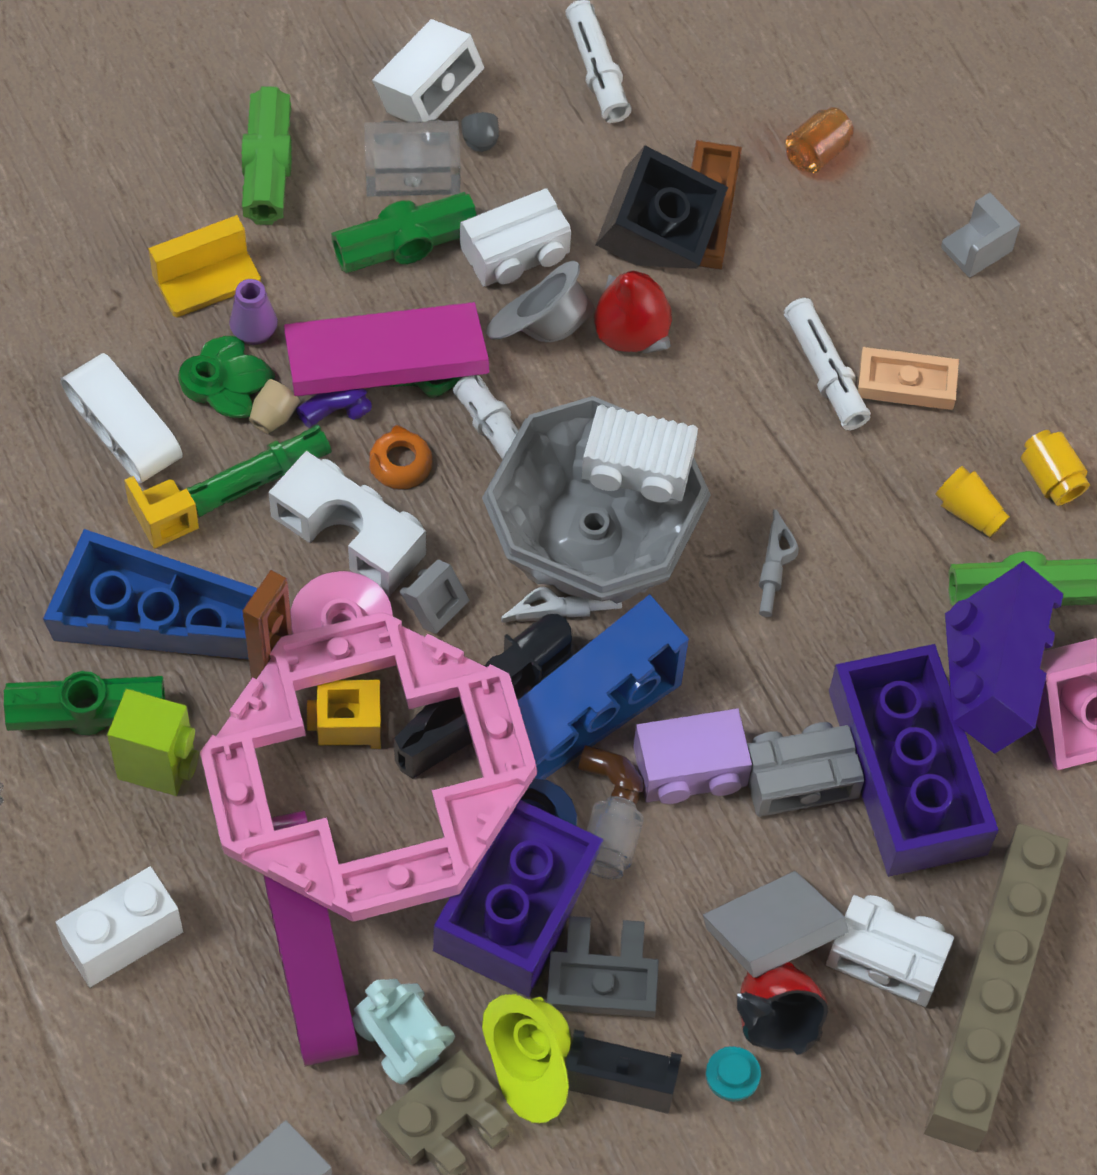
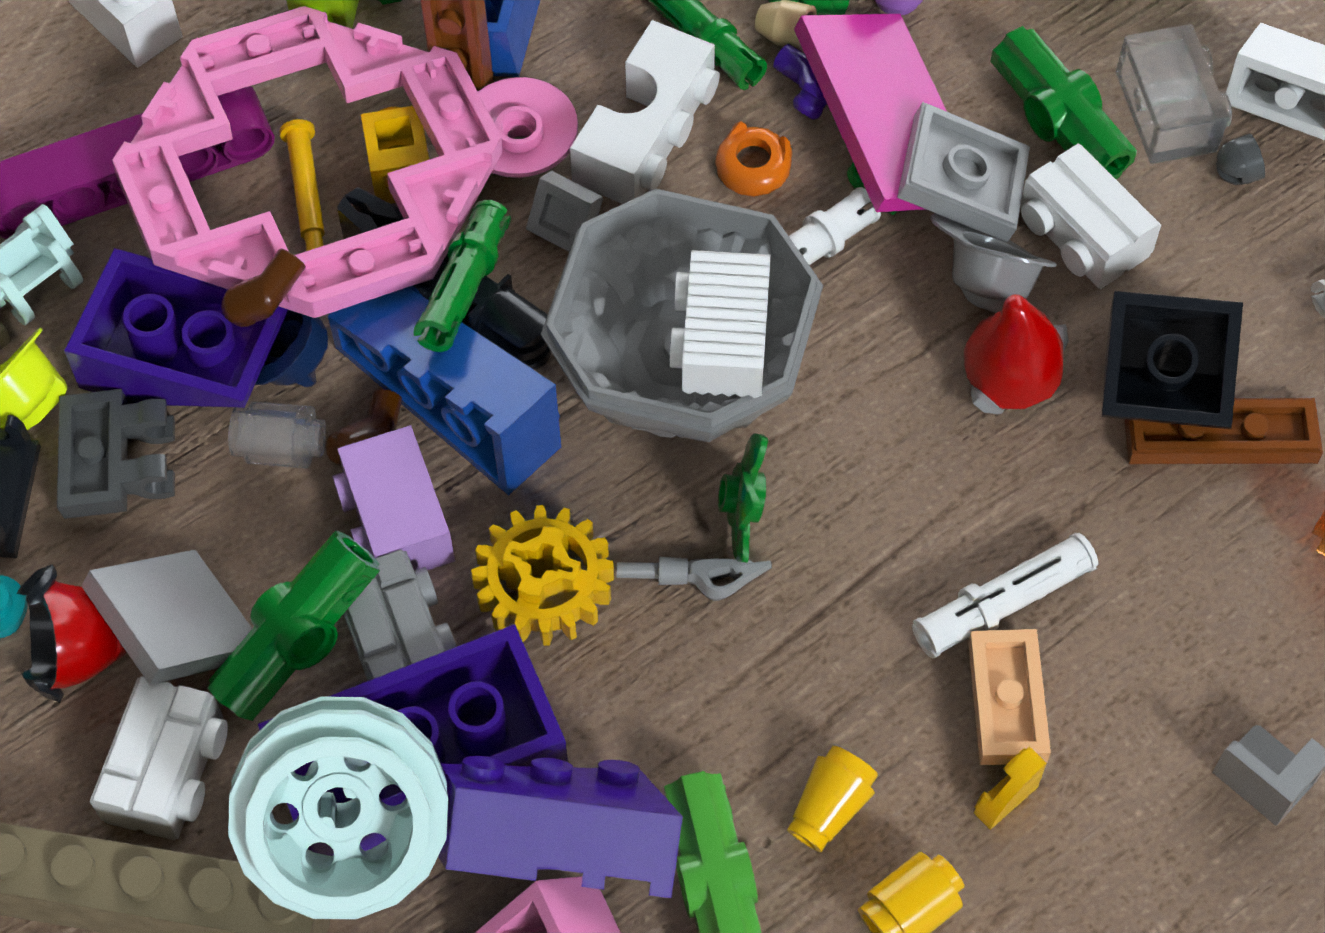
camera: 85 degrees right, 0 degrees up
(359, 797) = (298, 138): none -> yellow piece
(461, 307) = (964, 172): none -> light grey tile
(524, 800) = (261, 295): none -> reddish brown arm
(570, 670) = (471, 258): none -> green pin
(737, 506) = (744, 495): none -> green plate
(785, 674) = (548, 582): none -> yellow gear
(805, 826) = (293, 625): none -> green piece
(977, 391) = (1022, 779): none -> yellow tile
(1002, 774) = (341, 740): none -> light aqua wheel

